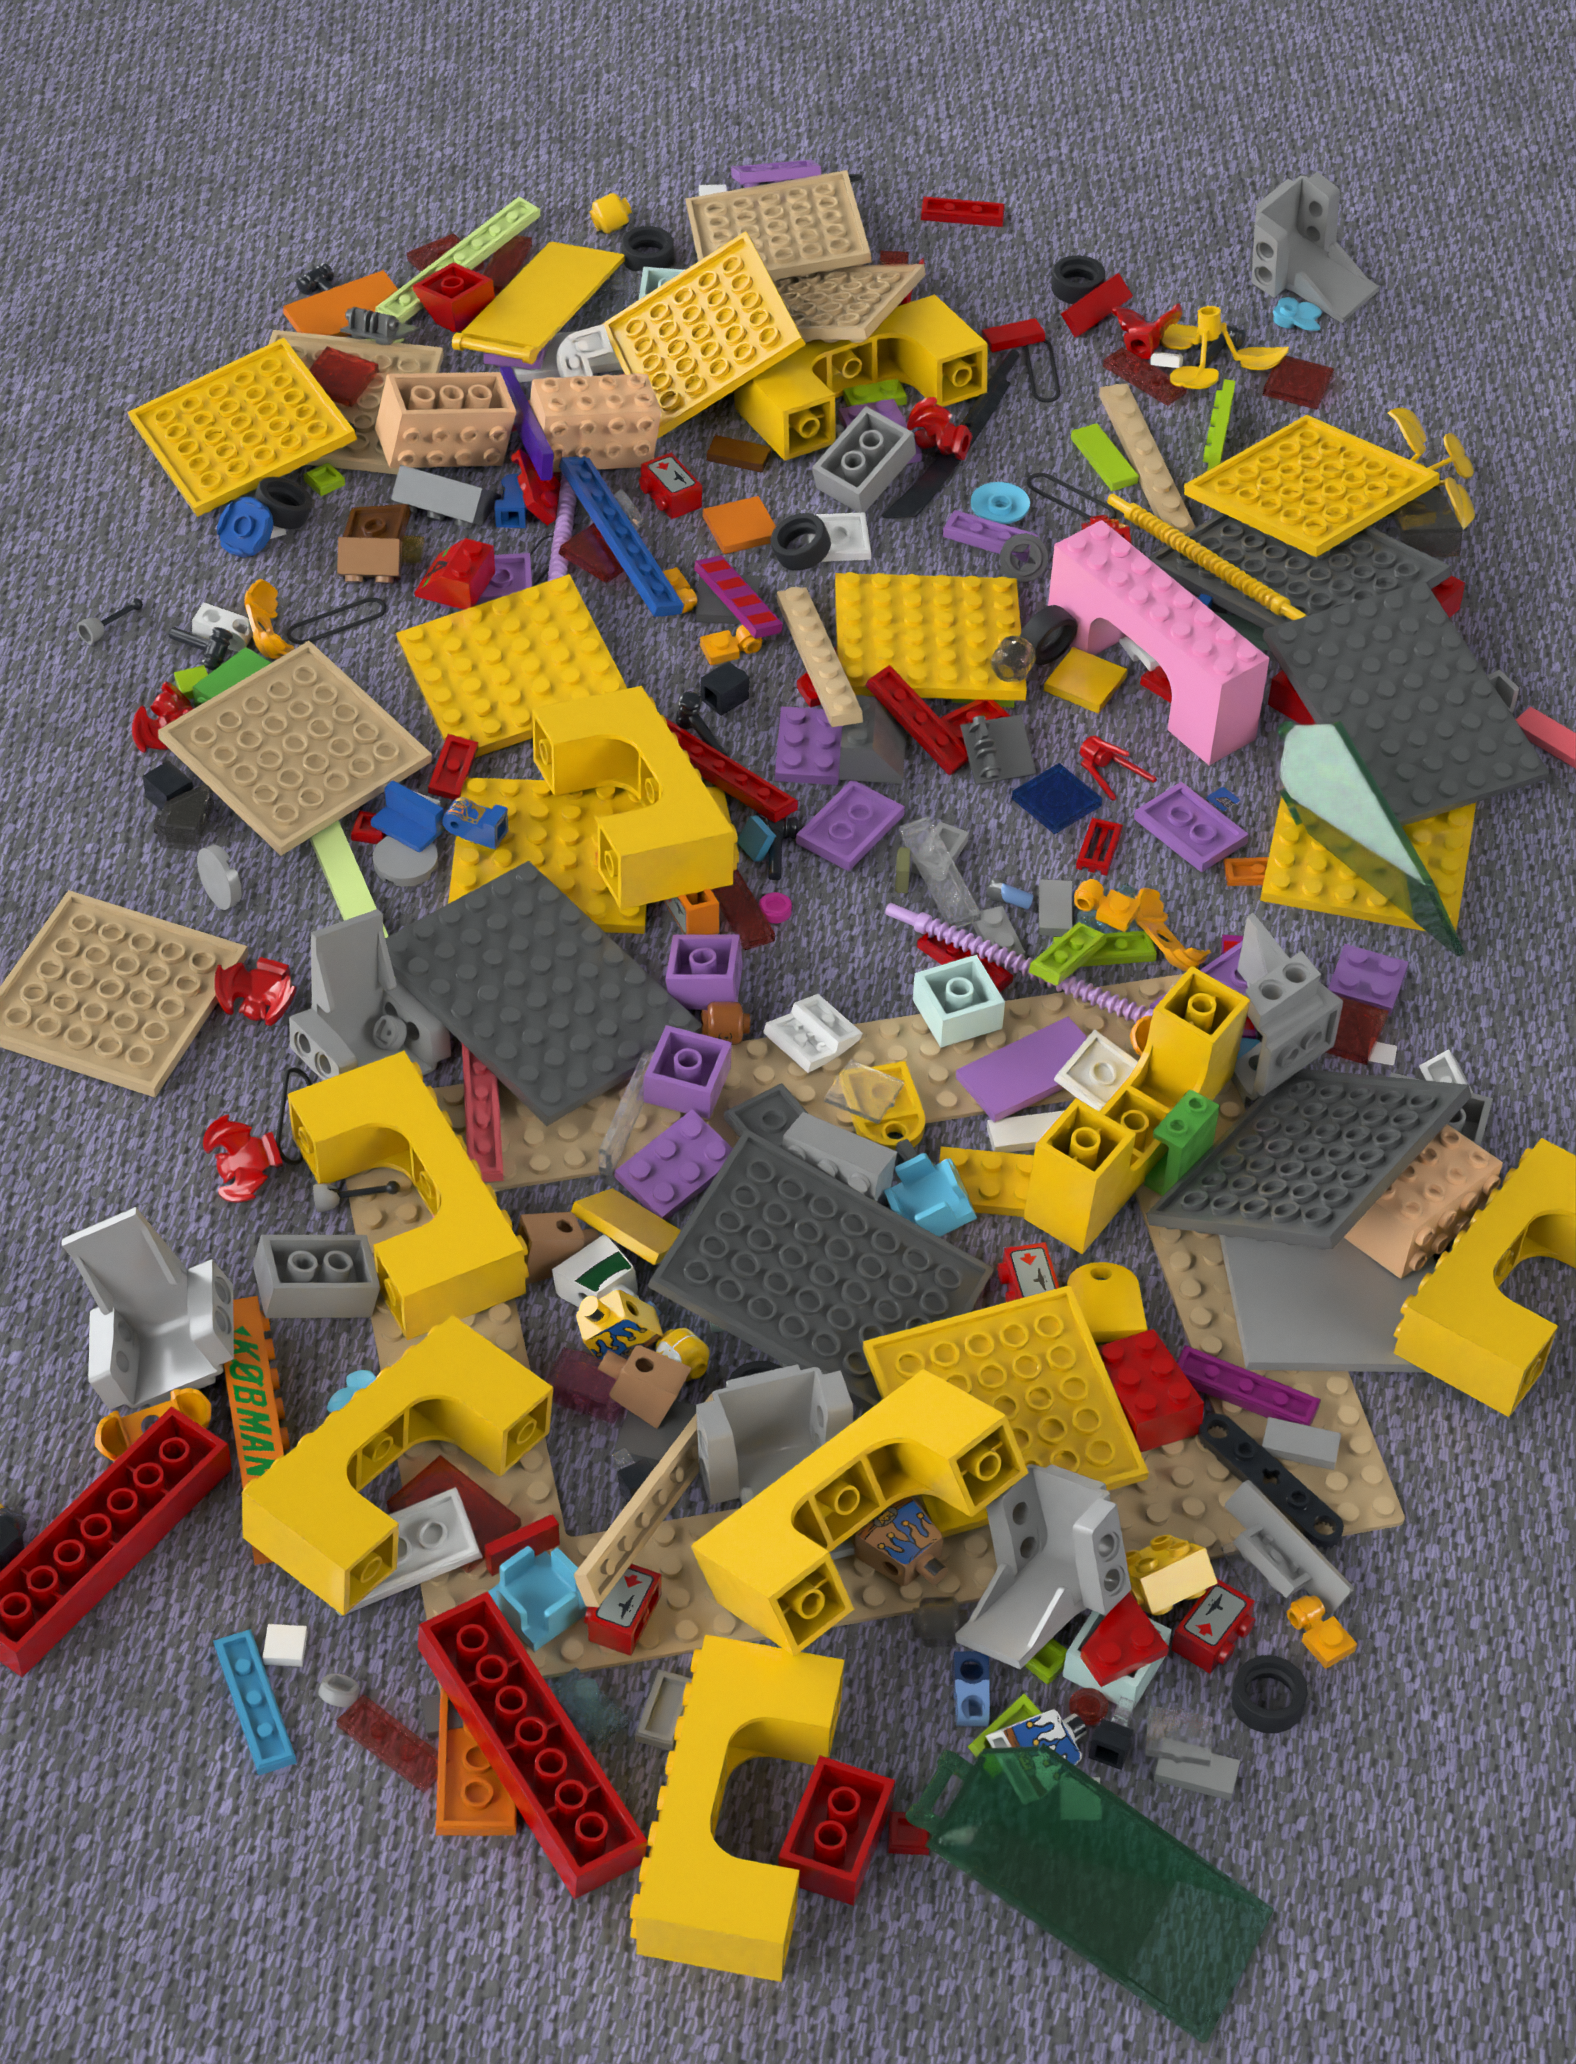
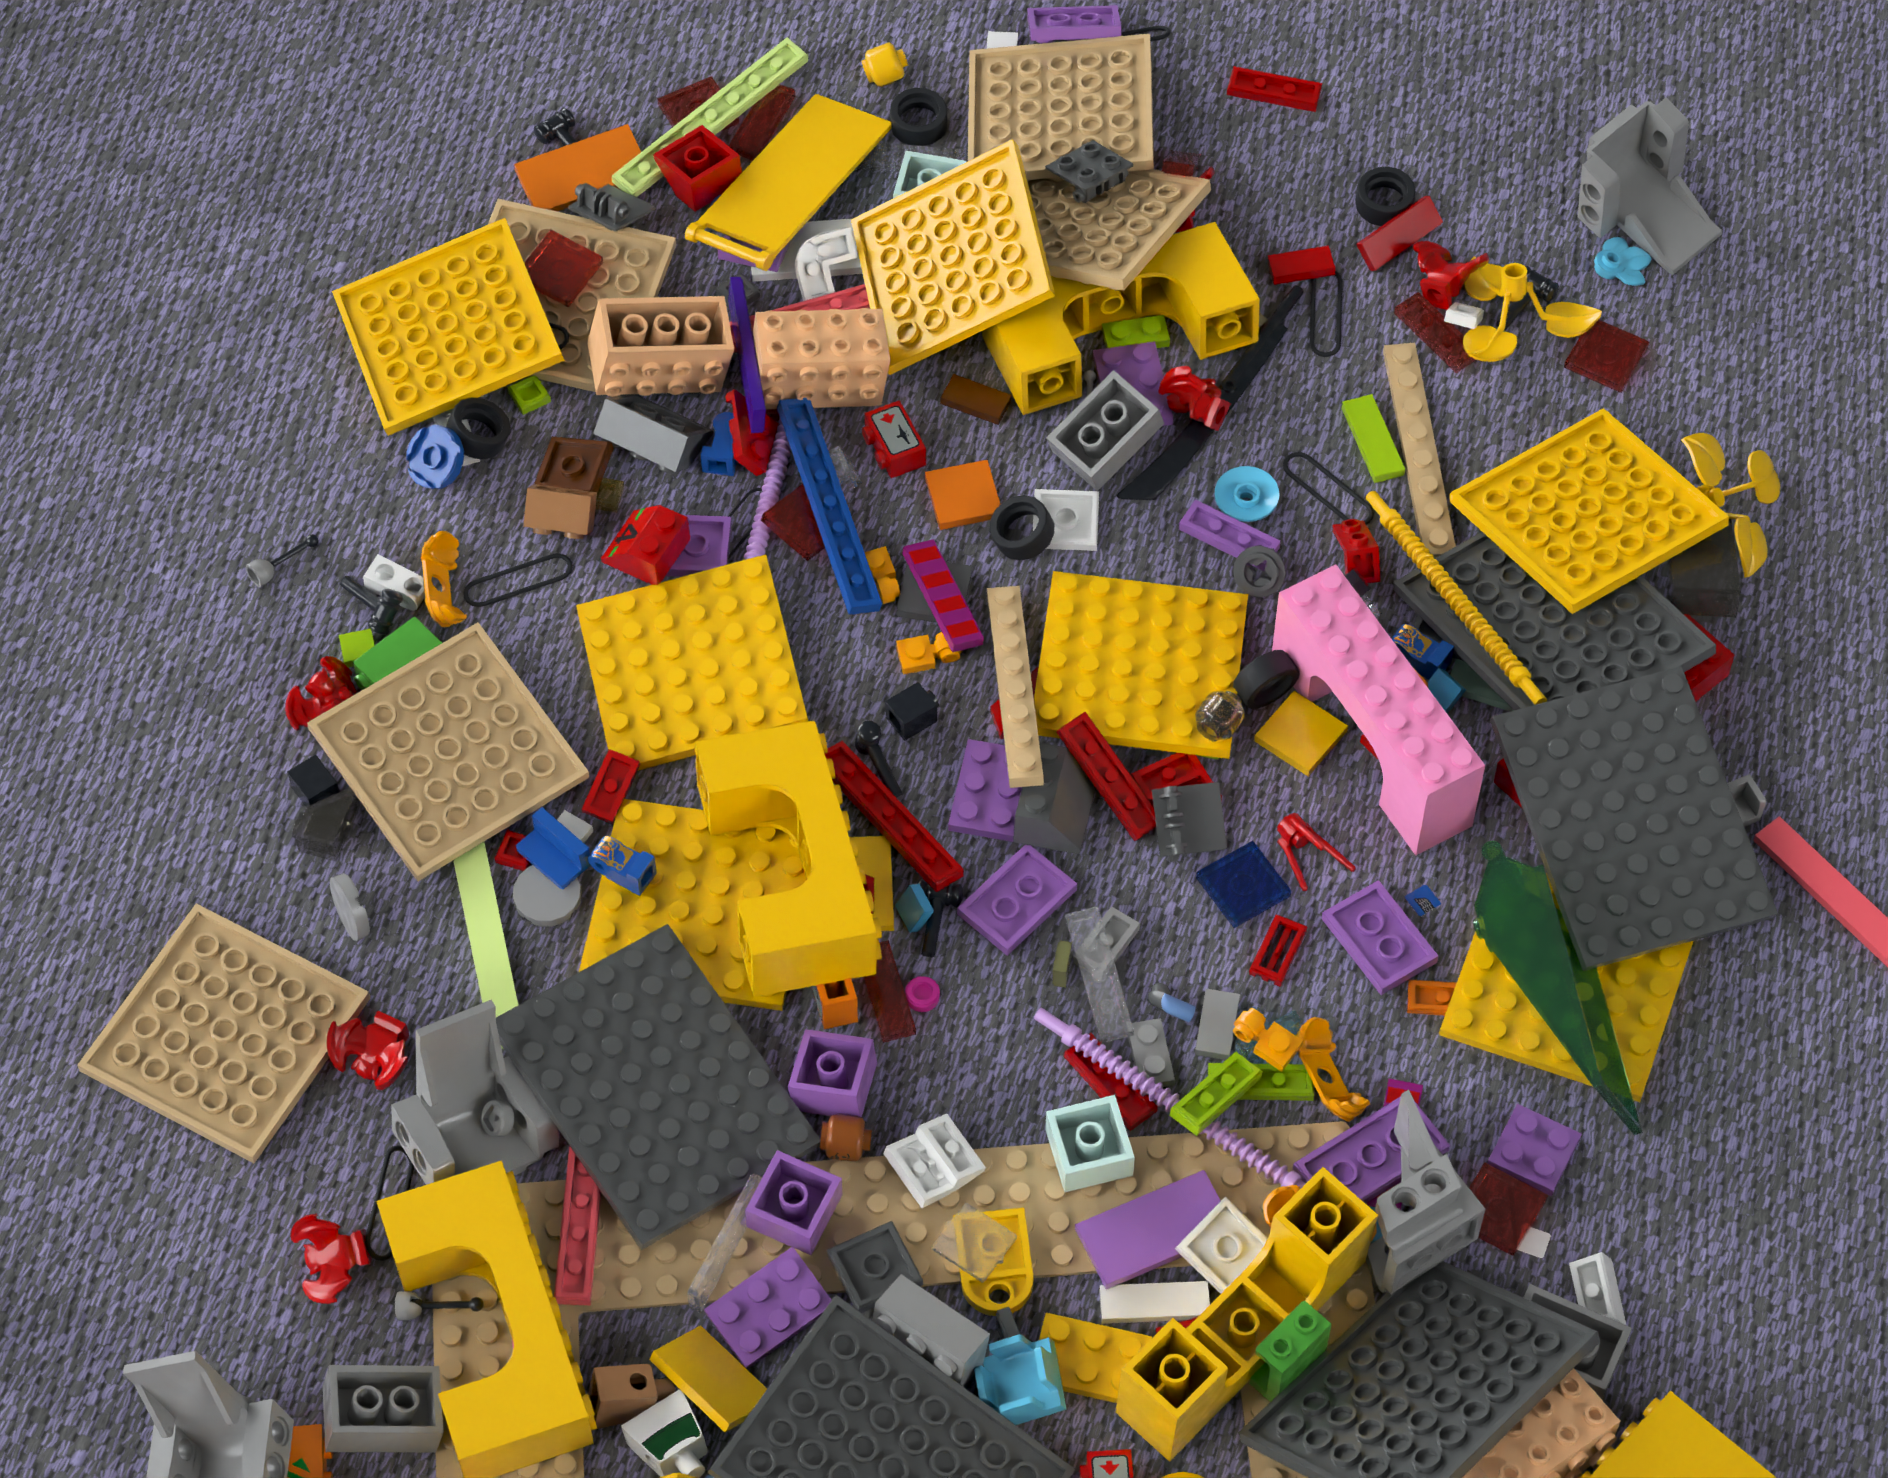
camera: 10 degrees right, 10 degrees up
(818, 264) = (1091, 170): none -> dark grey hinge
(1220, 420) = (1508, 401): lime plate -> none

